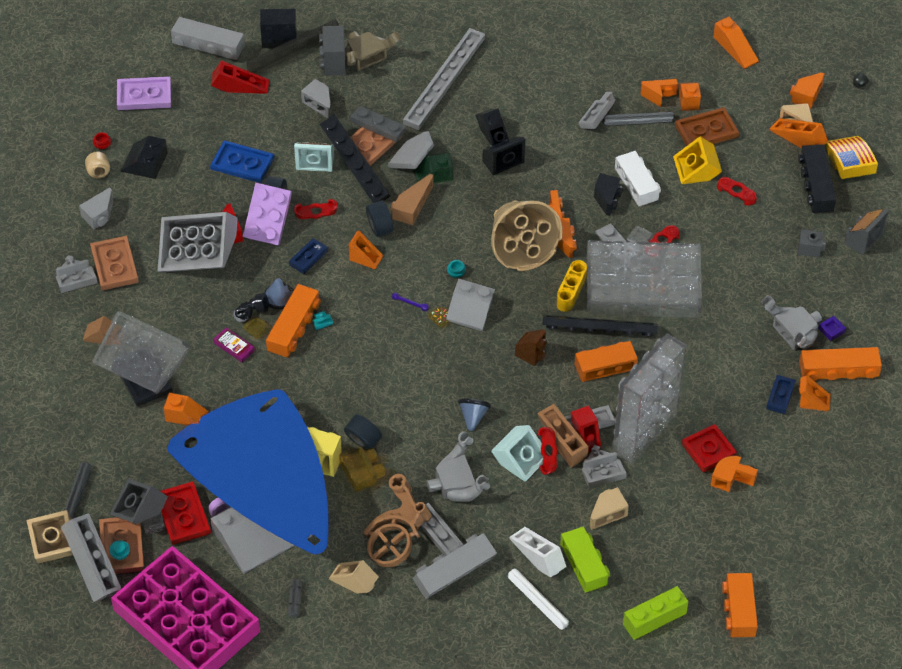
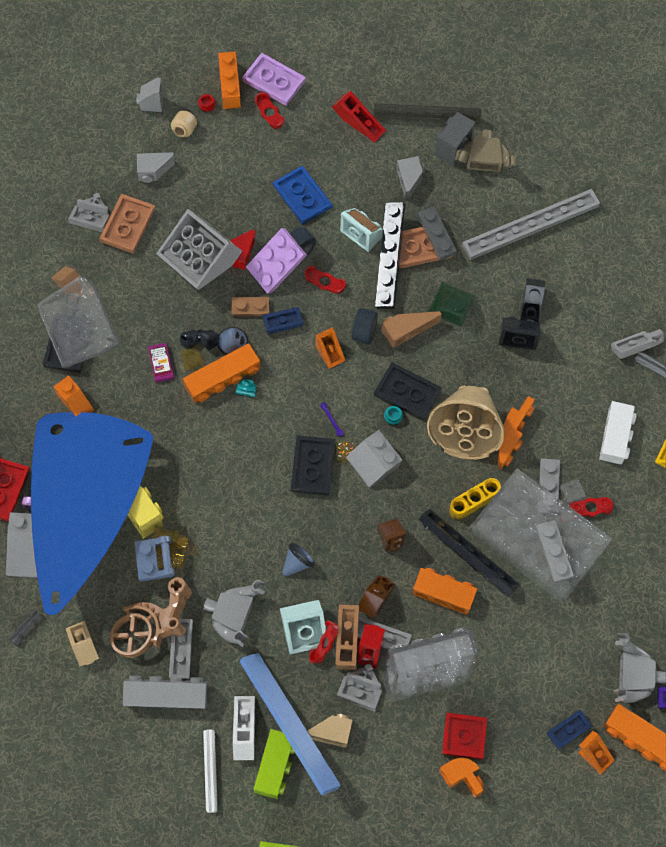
camera: 35 degrees right, 15 degrees up
(52, 158) = (151, 96): none -> light grey slope
(108, 113) = (229, 80): none -> orange brick
(146, 157) = (227, 142): black slope -> none
(150, 116) = (263, 102): none -> red piece
(207, 38) = (363, 60): light grey brick -> none
(271, 263) = (250, 306): none -> medium nougat plate
(277, 27) = (426, 86): black brick -> none
(358, 481) = (147, 559): none -> sand blue plate
(362, 432) = (191, 517): black wheel -> none
(412, 152) = (445, 279): light grey tile -> none
(425, 340) = (312, 465): none -> black plate
(453, 244) = (407, 391): none -> black plate
(558, 394) = (376, 596): none -> reddish brown slope
(572, 519) = (290, 724): none -> medium blue tile
(606, 192) = (580, 426): black slope -> none
(666, 276) = (554, 551): none -> light grey plate

